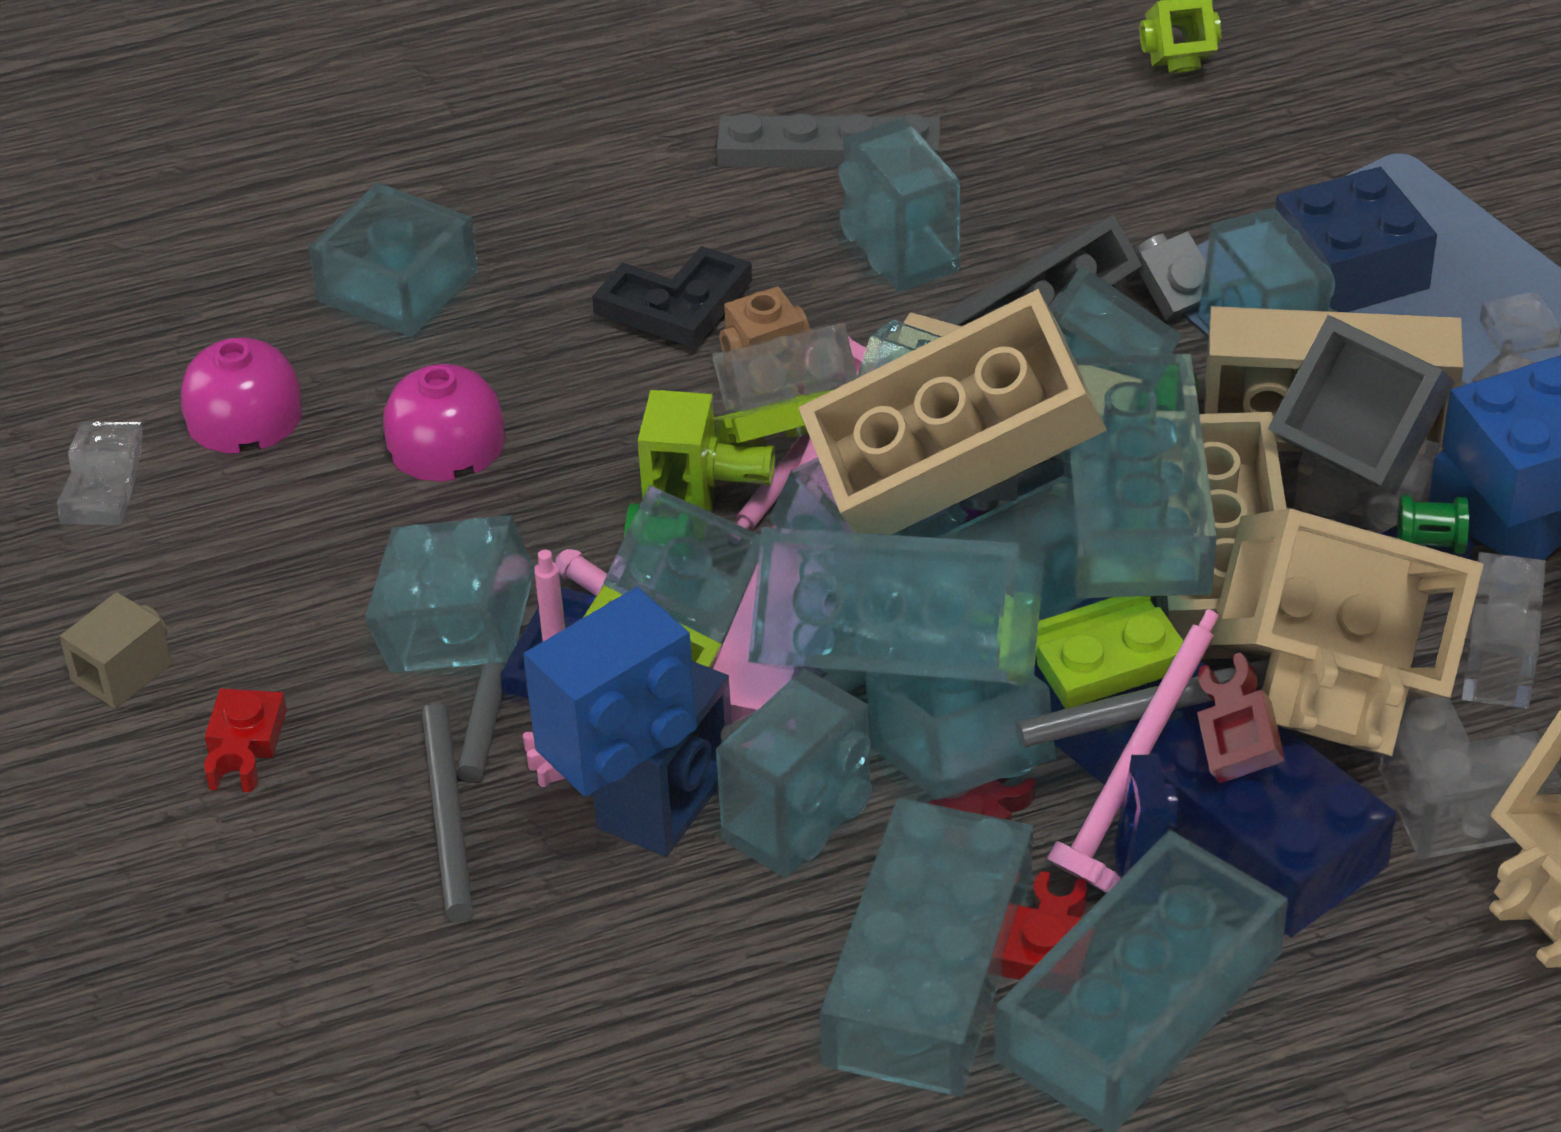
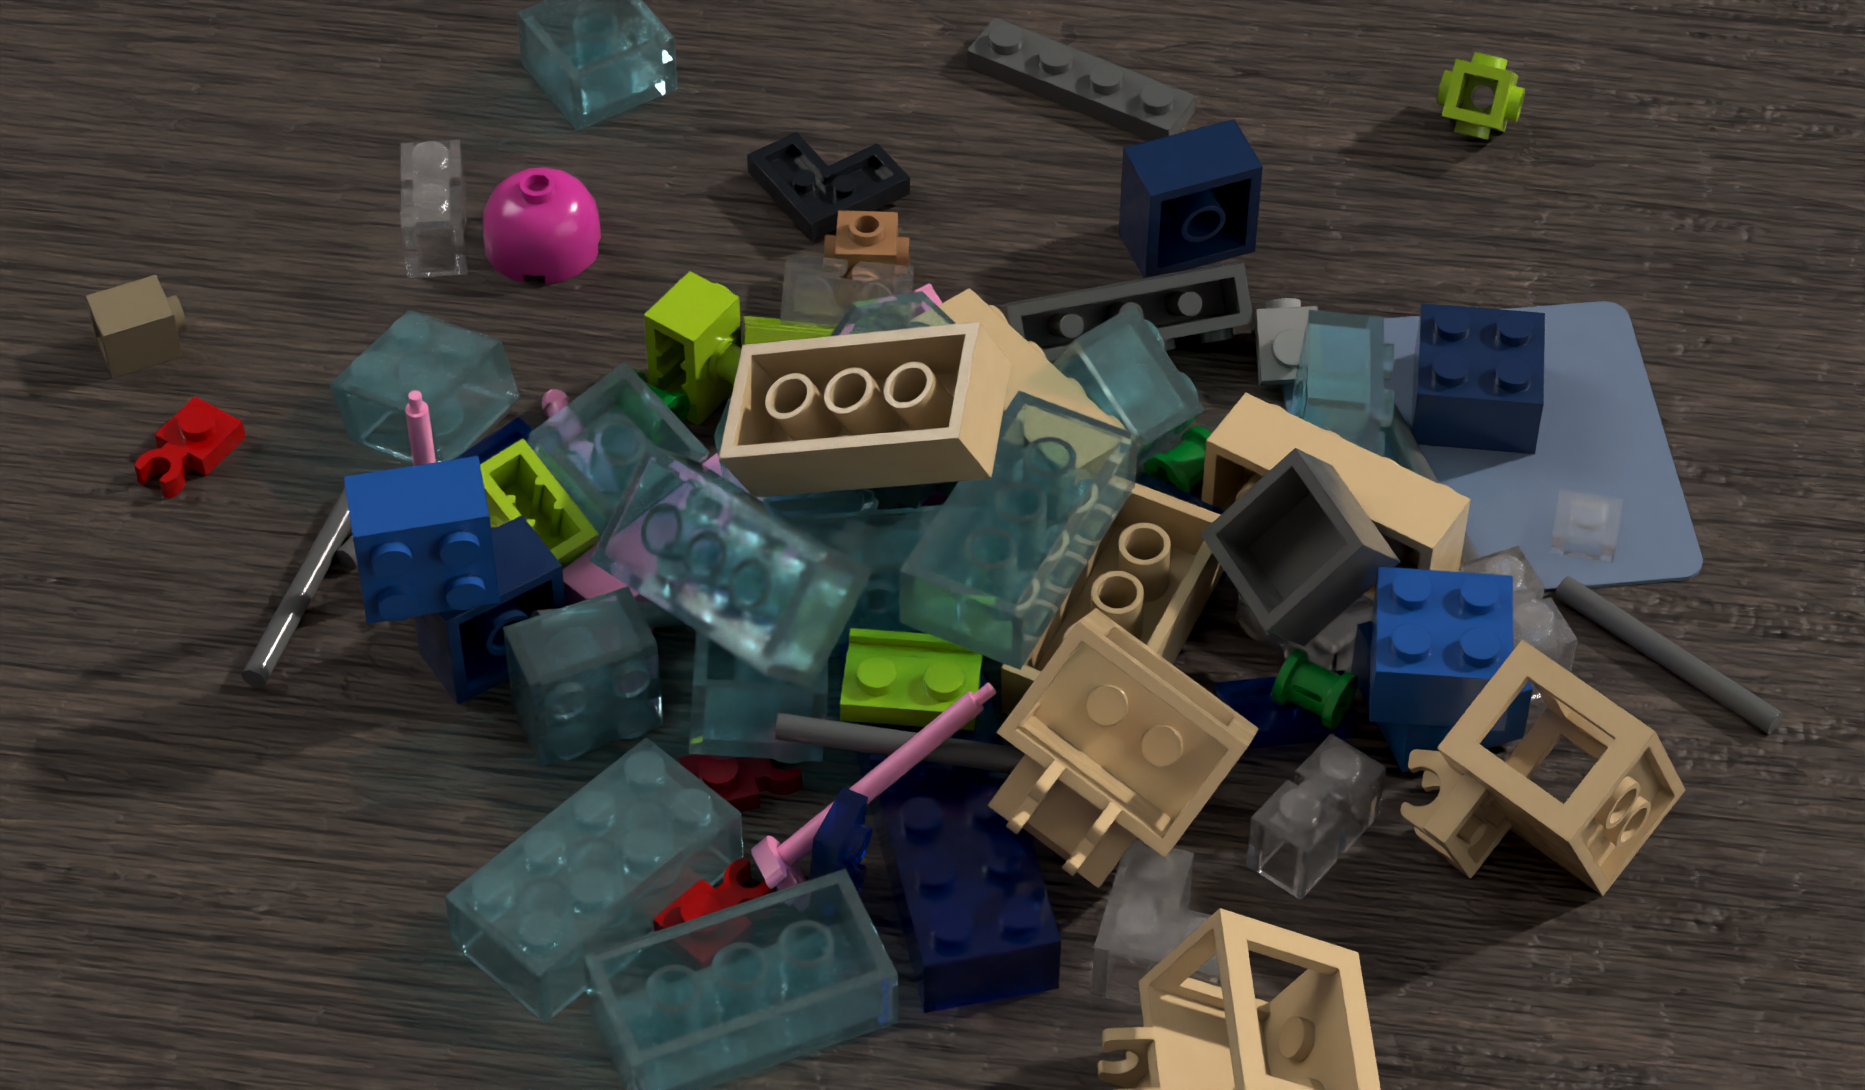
camera: 25 degrees right, 5 degrees up
(102, 473) = (239, 156): clear slope -> none
(240, 395) = (381, 116): dark pink cylinder -> none
(336, 443) = (433, 208): none -> clear piece
(900, 204) = (1070, 174): clear light blue brick -> none
(1017, 188) = (1190, 199): none -> dark blue brick
(1242, 727) = (961, 802): dark red plate -> none

